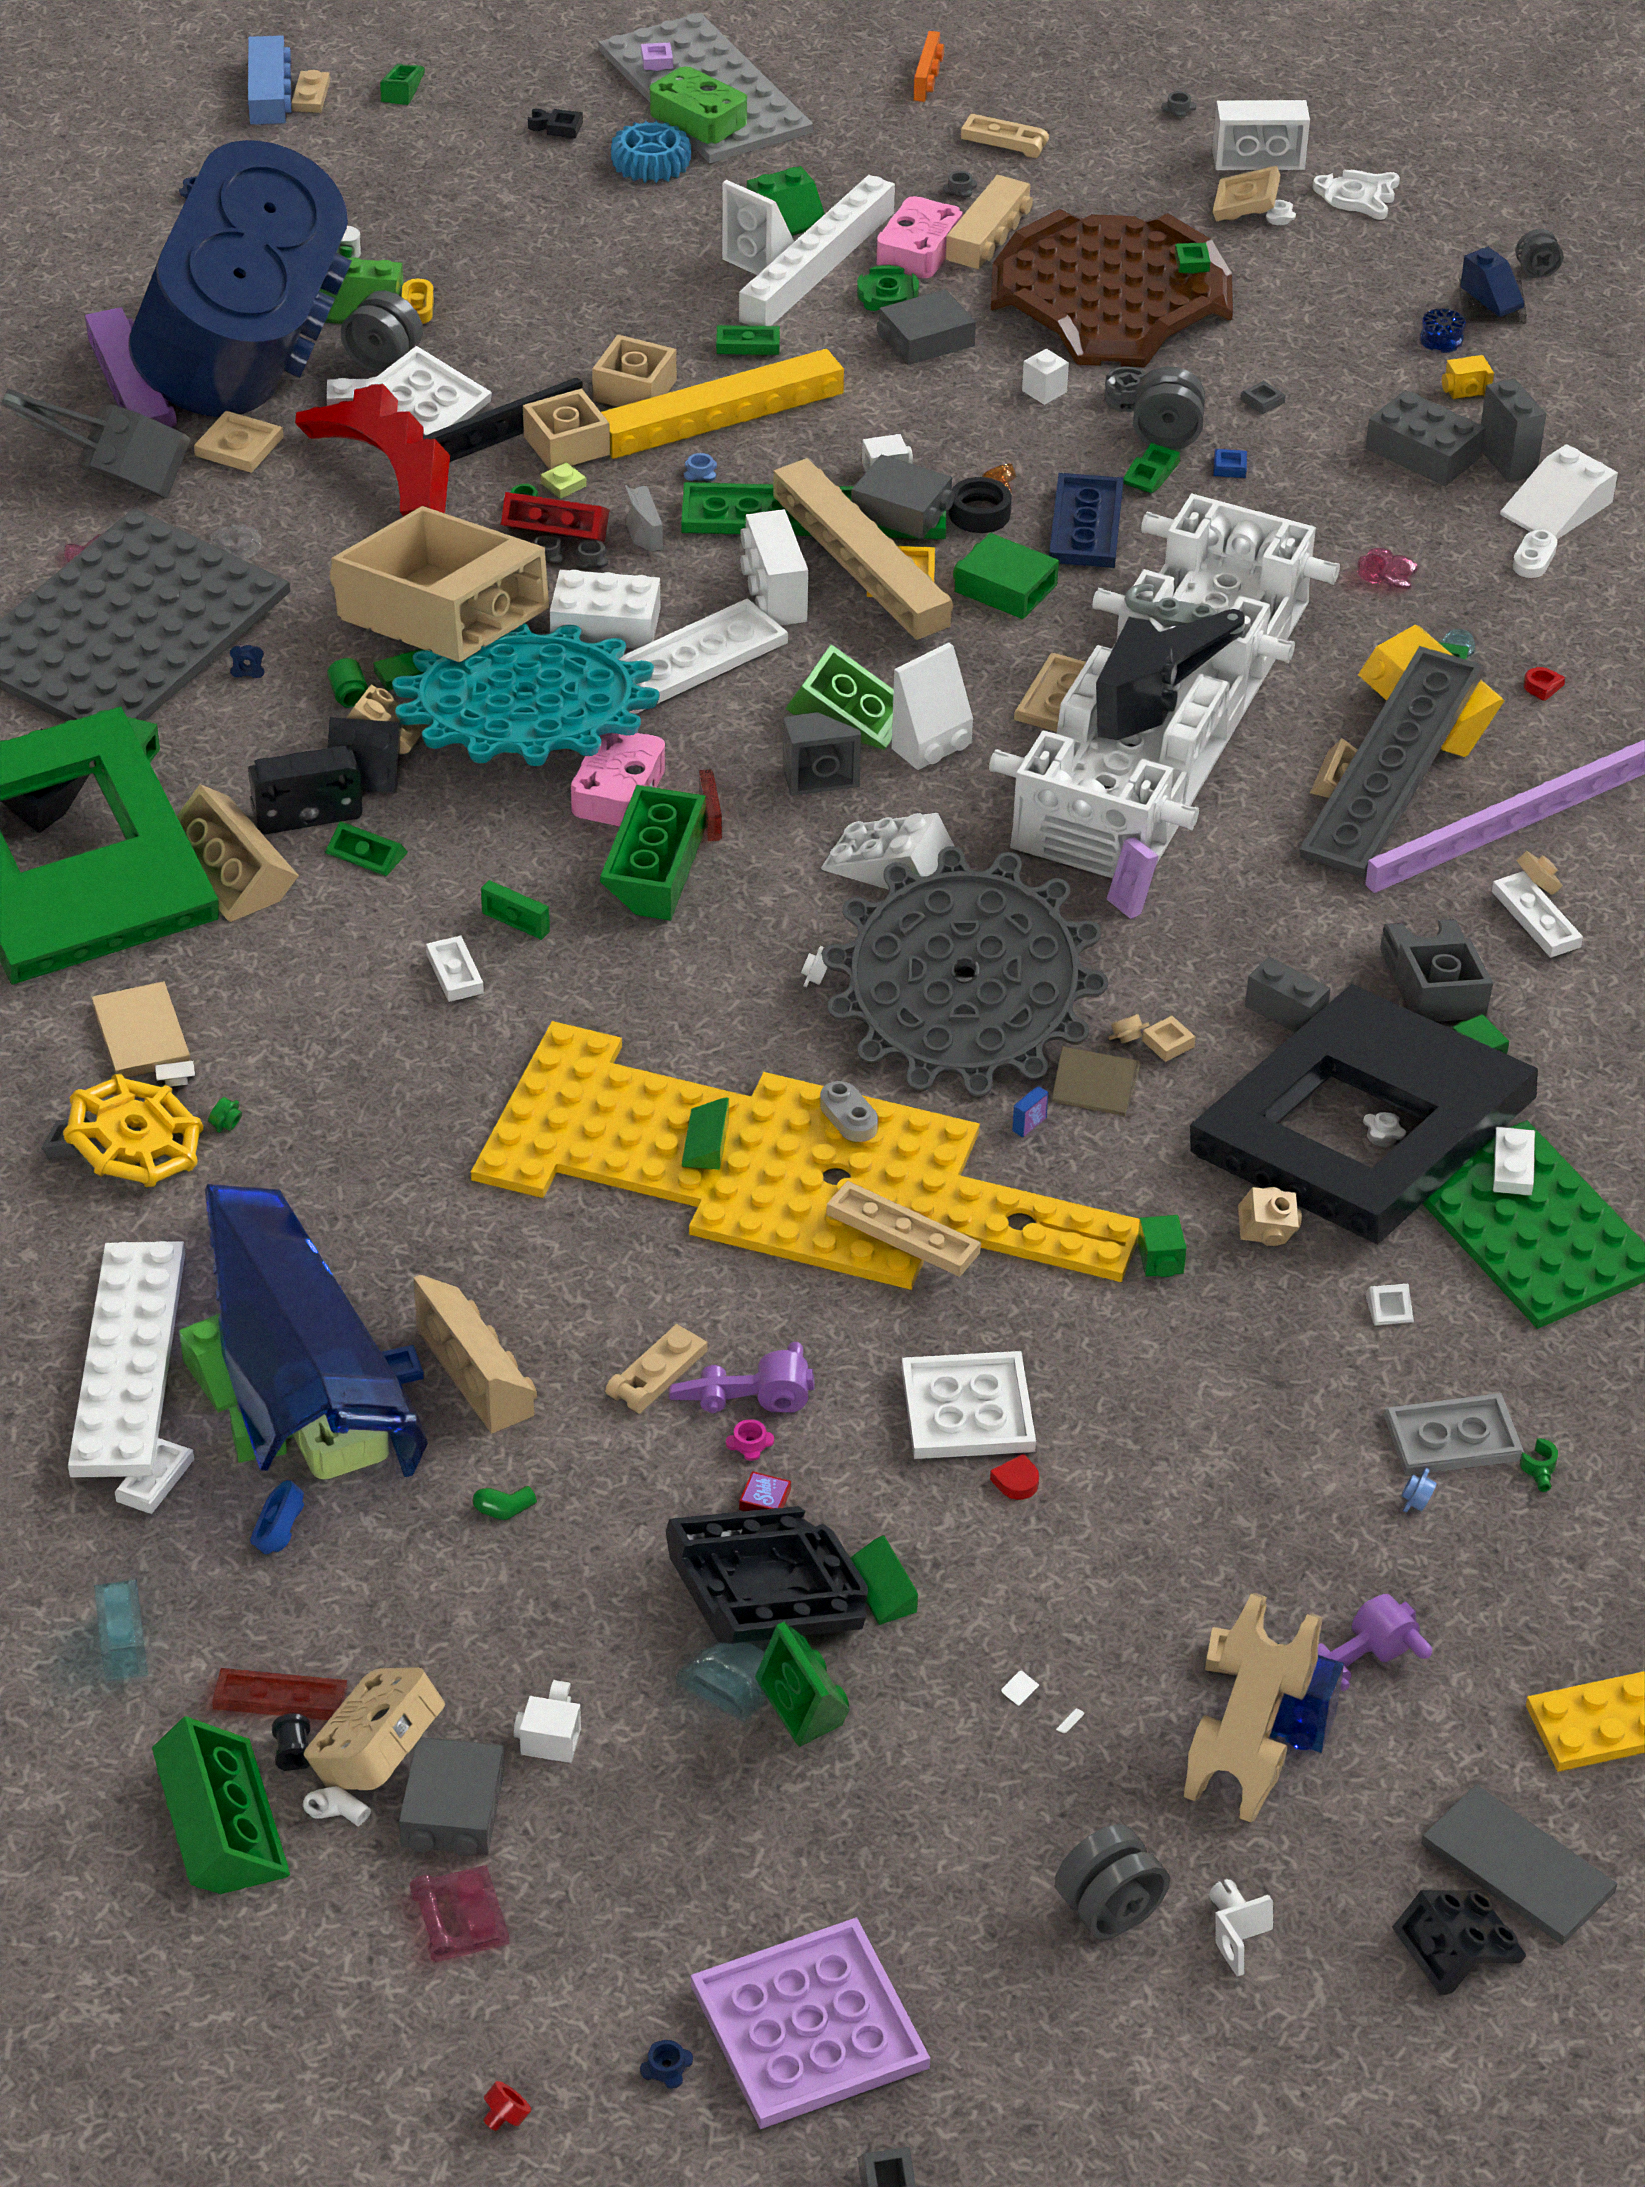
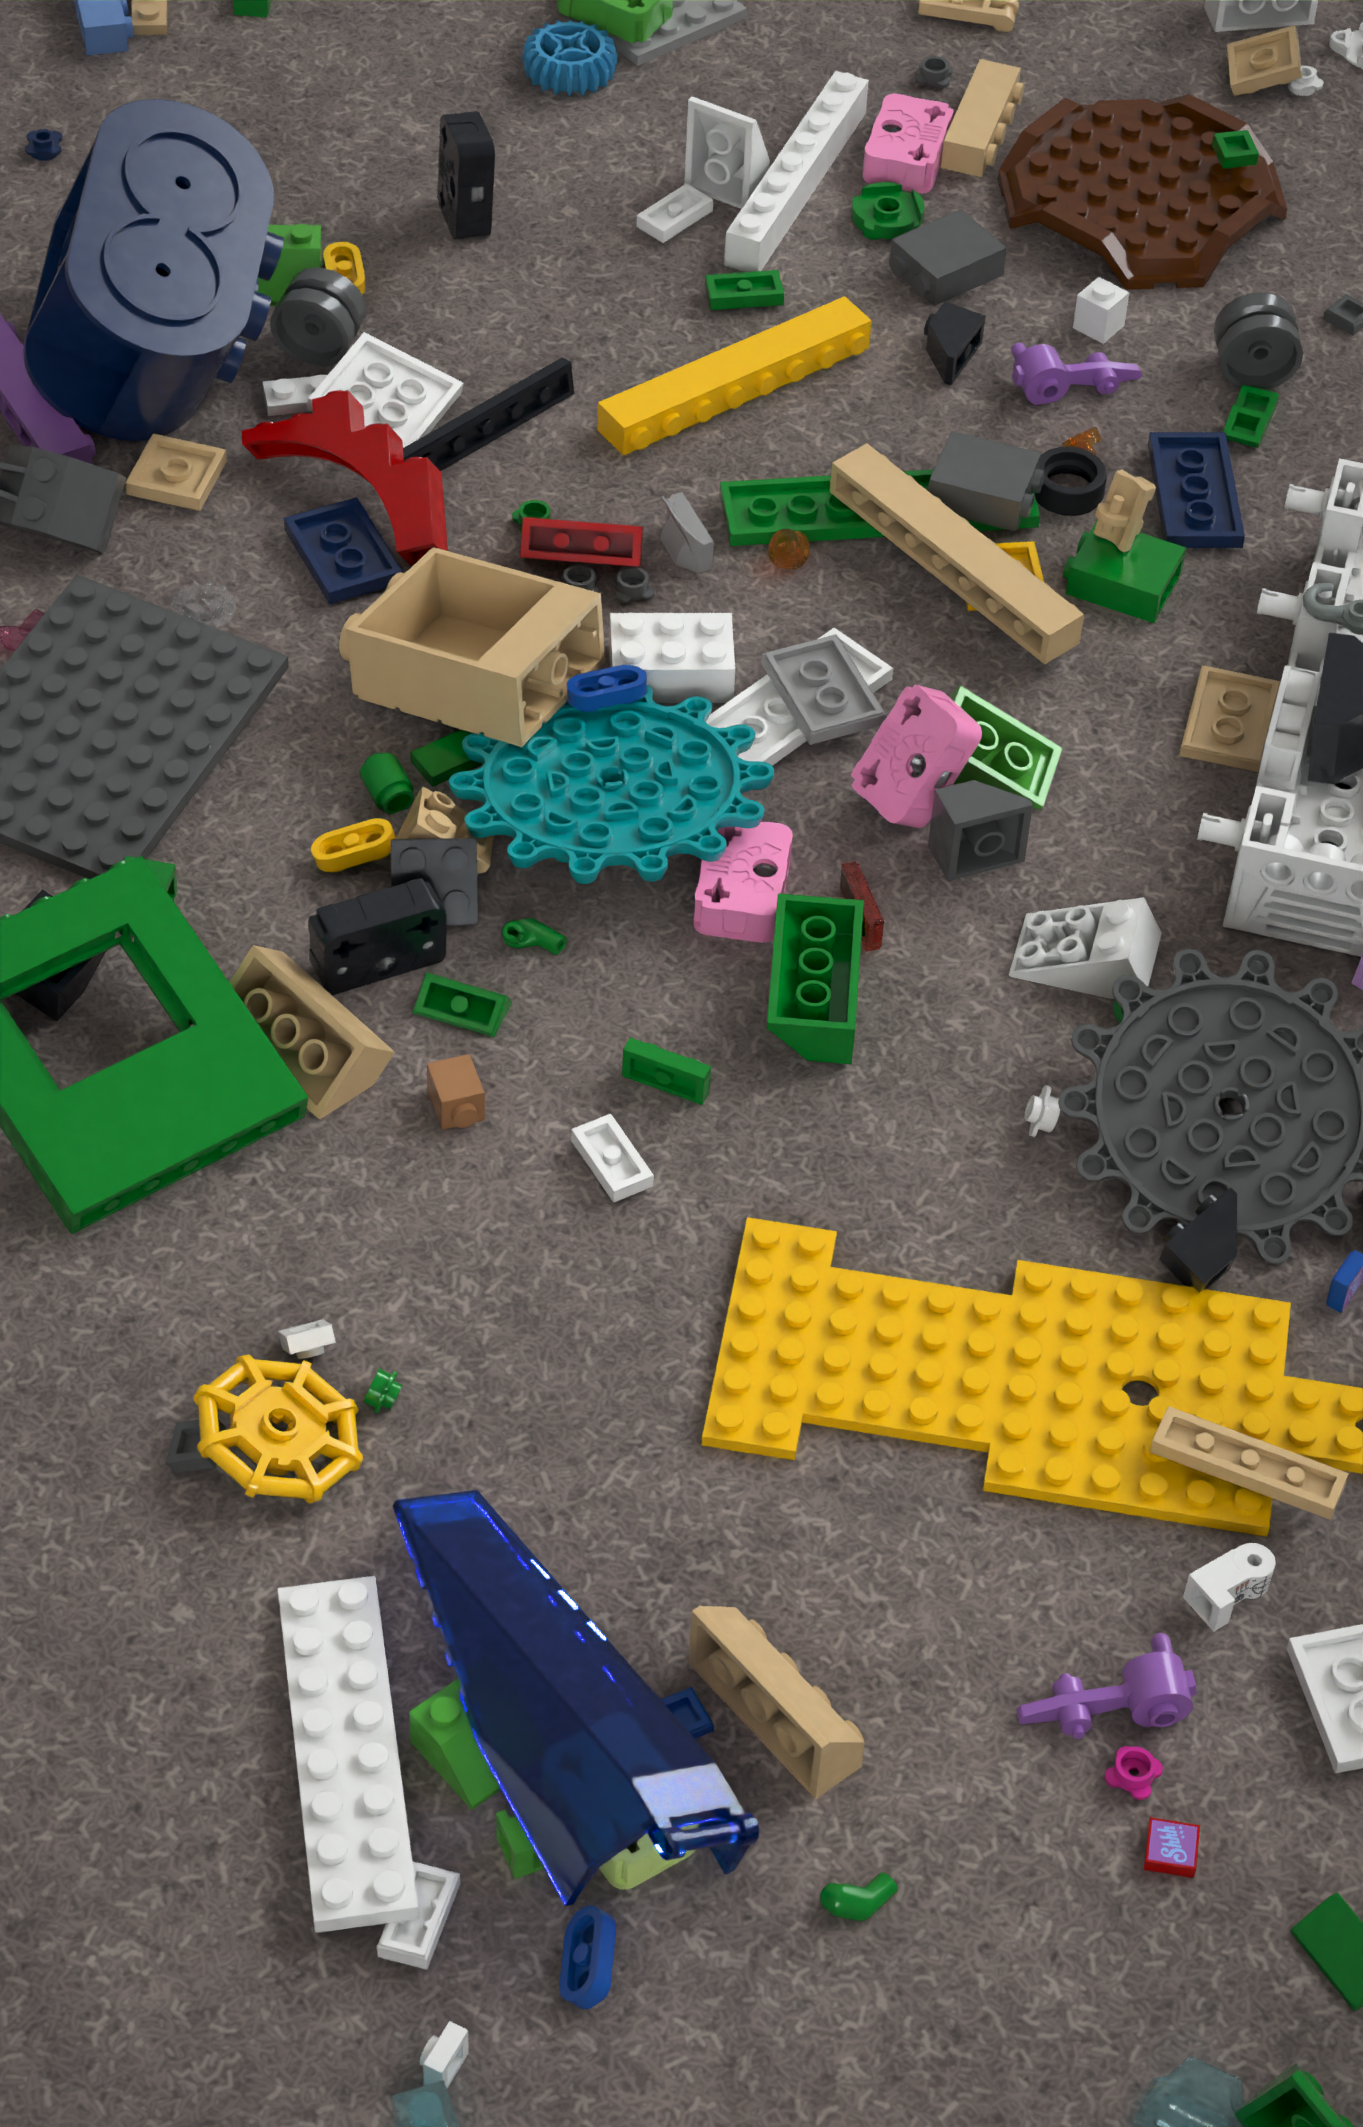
camera: 10 degrees left, 5 degrees up
(140, 1029) = (248, 1282): tan tile -> none
(149, 1569) = (444, 2054): none -> white plate
(247, 652) = (256, 755): dark blue plate -> none
(304, 725) = (353, 845): none -> yellow plate
(341, 909) = (456, 1092): none -> medium nougat brick
(356, 506) = (342, 550): none -> dark blue plate
(436, 803) = (532, 933): none -> green arm
(531, 232) = (466, 174): none -> black axle
(540, 623) = (606, 687): none -> blue plate
(558, 123) = (452, 28): black plate -> none
(563, 480) = (574, 489): yellowish green plate -> none
(566, 429) = (566, 426): tan brick -> none
(633, 371) = (626, 345): tan brick -> none
(657, 1368) = (996, 1684): tan plate -> none
(700, 467) = (731, 460): medium blue plate -> none
(706, 277) = (674, 213): none -> white plate
(706, 1135) = (979, 1358): green slope -> none
(723, 642) = (823, 689): none -> light grey tile
(727, 537) = (789, 549): none -> clear orange tile
(766, 1571) = (1213, 1969): black wedge -> none
(775, 567) = (862, 586): white brick -> none
(782, 684) = (914, 754): none -> bright pink axle
(794, 195) = (753, 96): green slope -> none
(848, 1111) = (1135, 1304): light grey plate -> none
(866, 1314) = (1228, 1580): none -> white leg
(890, 446) = (938, 421): white brick -> none
(914, 389) = (953, 339): none -> black slope
(916, 1073) = (1206, 1246): none -> black slope
(930, 708) = (1096, 760): white slope -> none
(984, 425) = (1048, 378): none -> medium lavender piece
(1005, 523) = (1123, 509): none -> tan hips
(1121, 387) = (1194, 315): dark grey wheel -> none
(1230, 463) = (1336, 402): blue tile -> none

